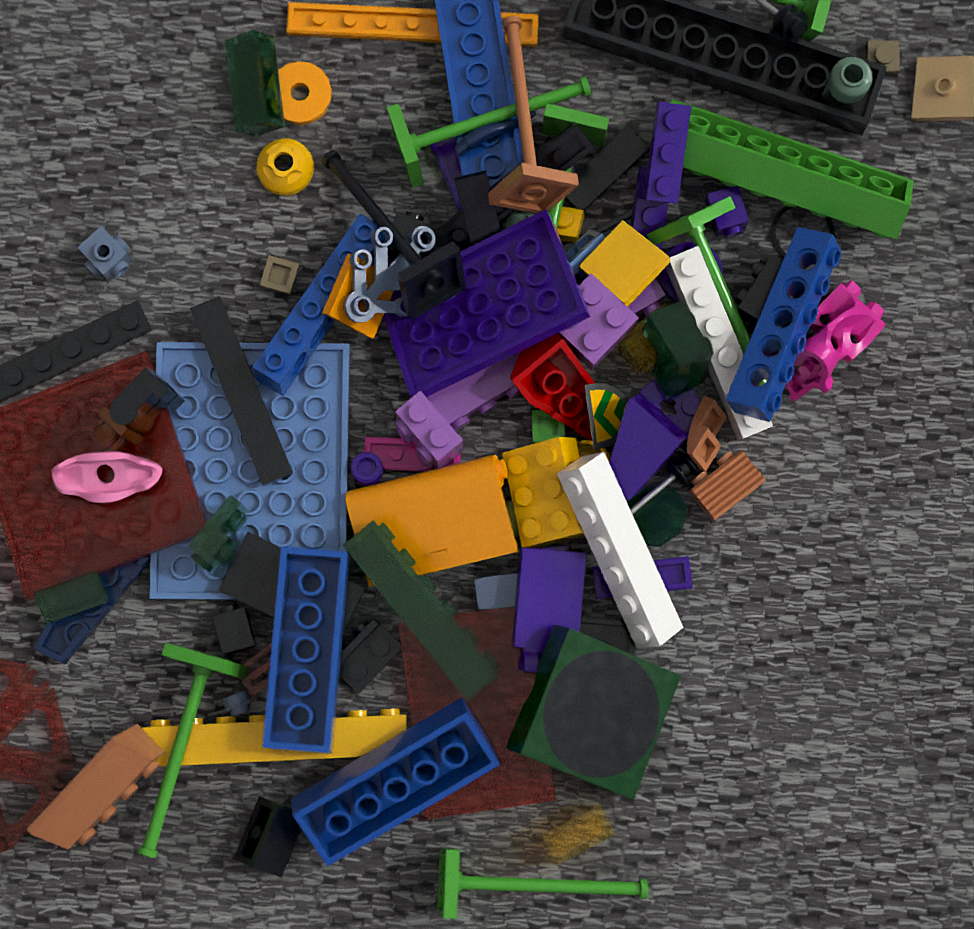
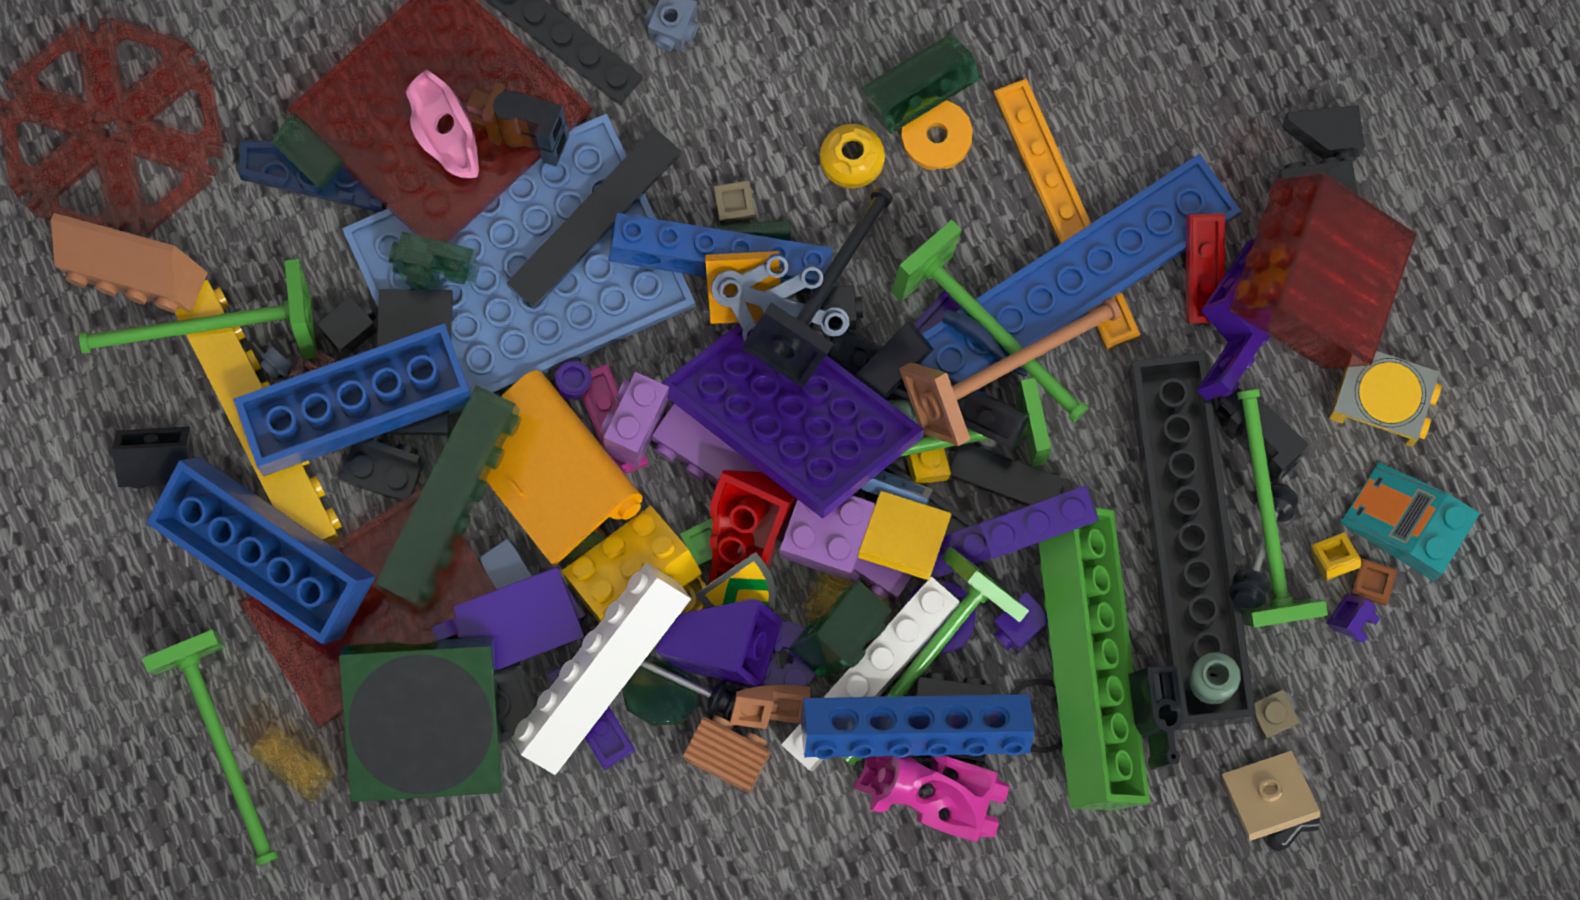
camera: 65 degrees right, 5 degrees down
(316, 260) = (770, 229): none -> clear green pin
(851, 139) = (1157, 712): none -> black piece

